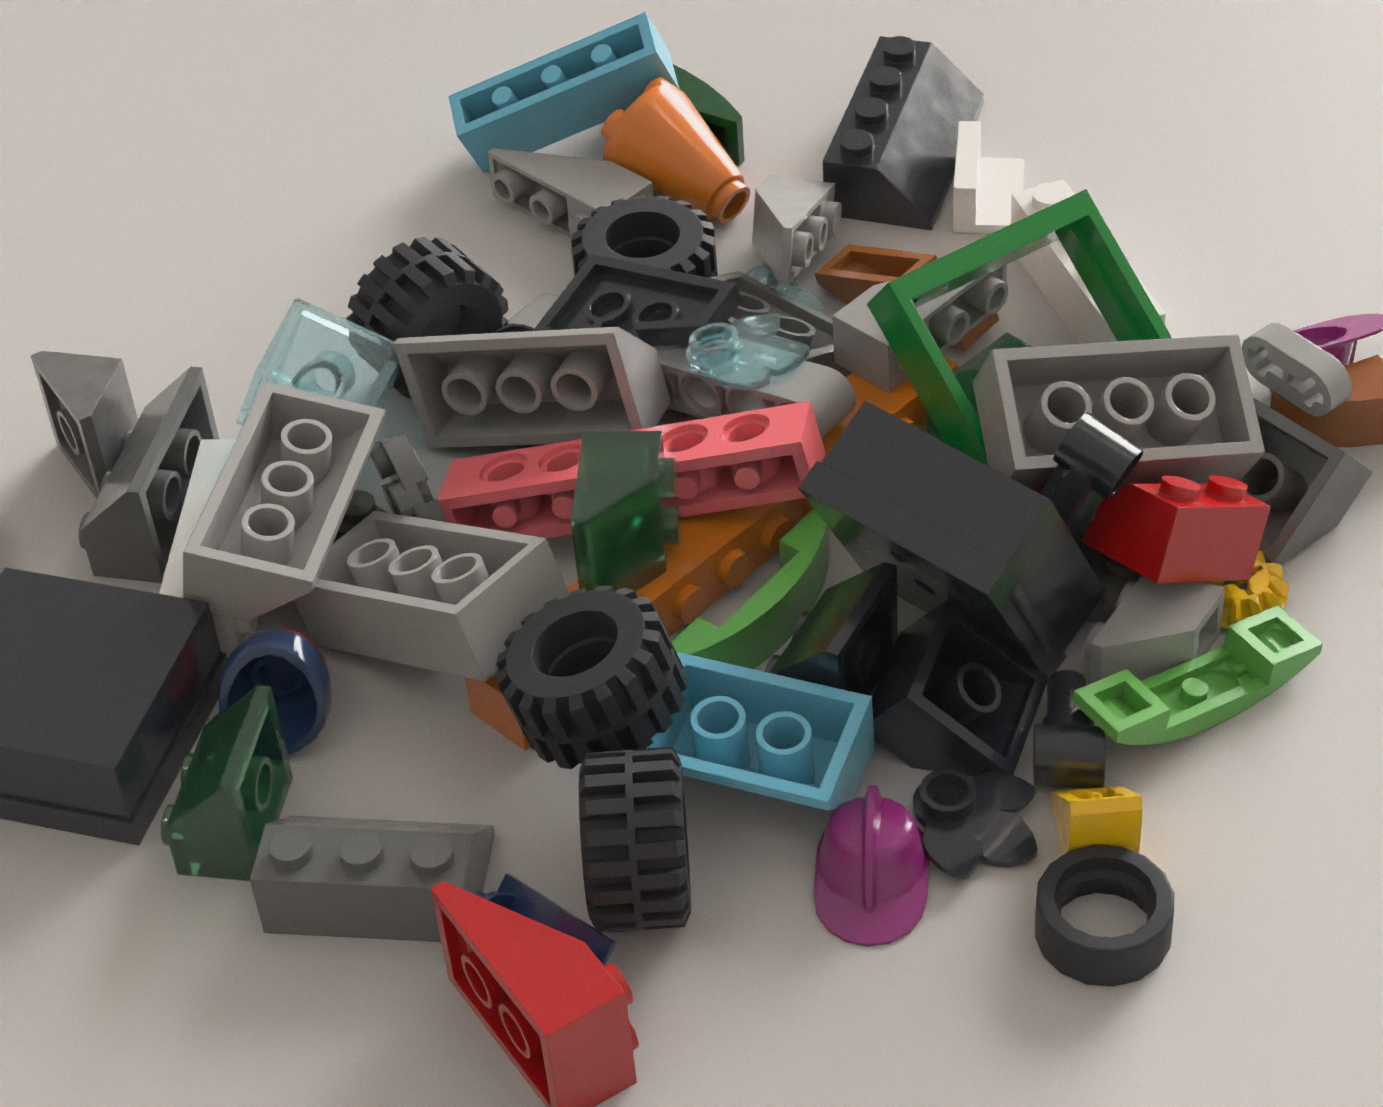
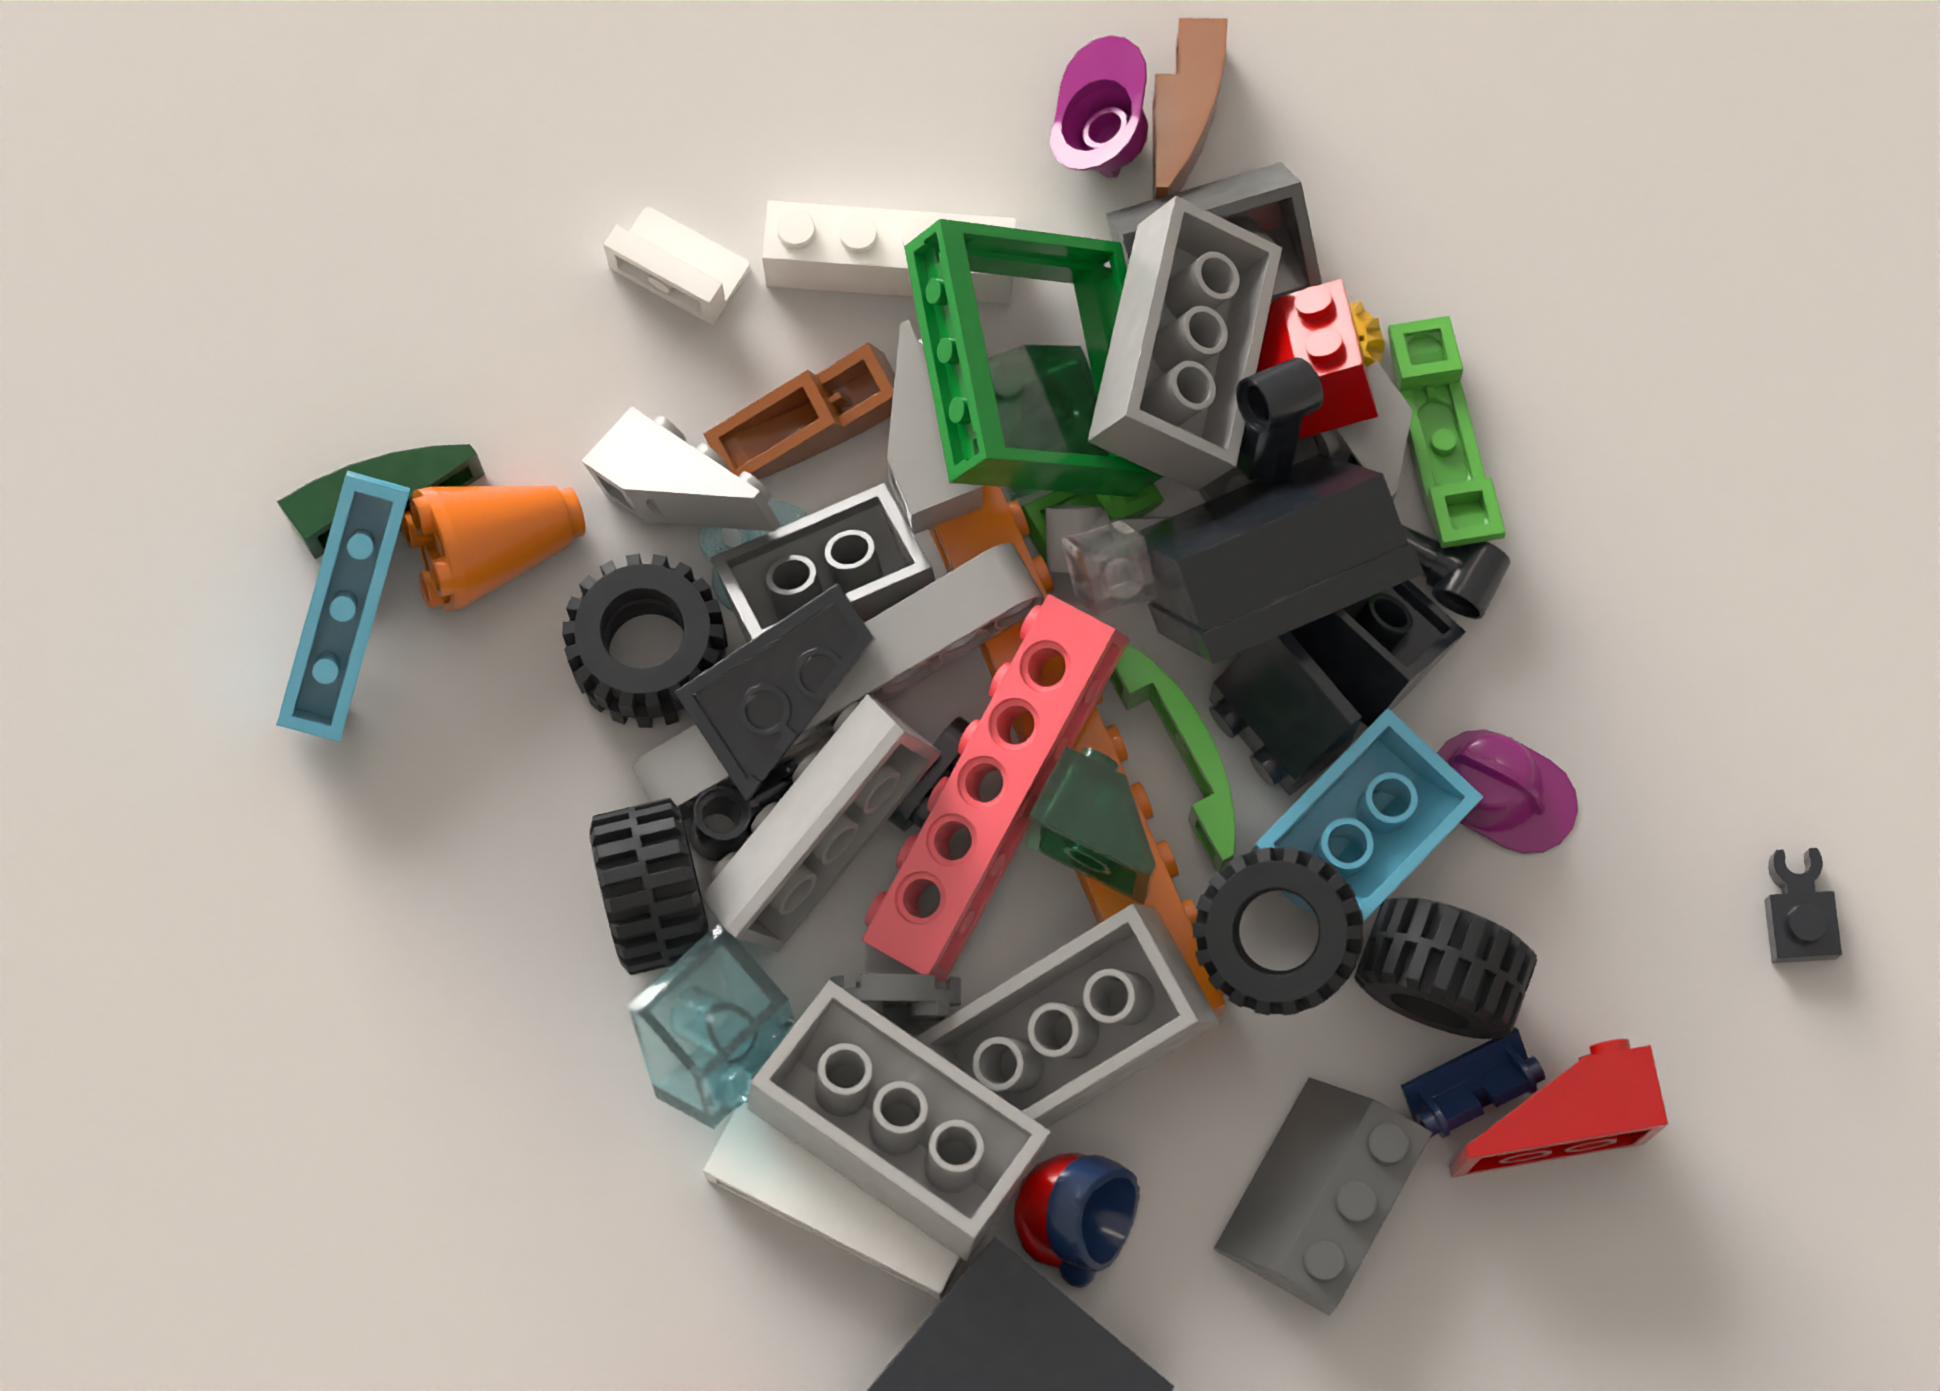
camera: 70 degrees left, 30 degrees up
(87, 409) = (613, 1273): flat silver slope -> none
(144, 494) = (723, 1240): dark grey slope -> none
(229, 791) = (1192, 1295): clear green slope -> none
(559, 187) = (485, 651): light grey slope -> none
(744, 352) = (930, 607): clear light blue plate -> none
(900, 135) = (559, 303): black slope -> none
(974, 820) = (1501, 680): black plate -> none
(1097, 817) = (1551, 592): yellow slope -> none
(1099, 958) = (1667, 595): black tyre -> none
(1296, 369) = (1166, 157): light grey beam -> none

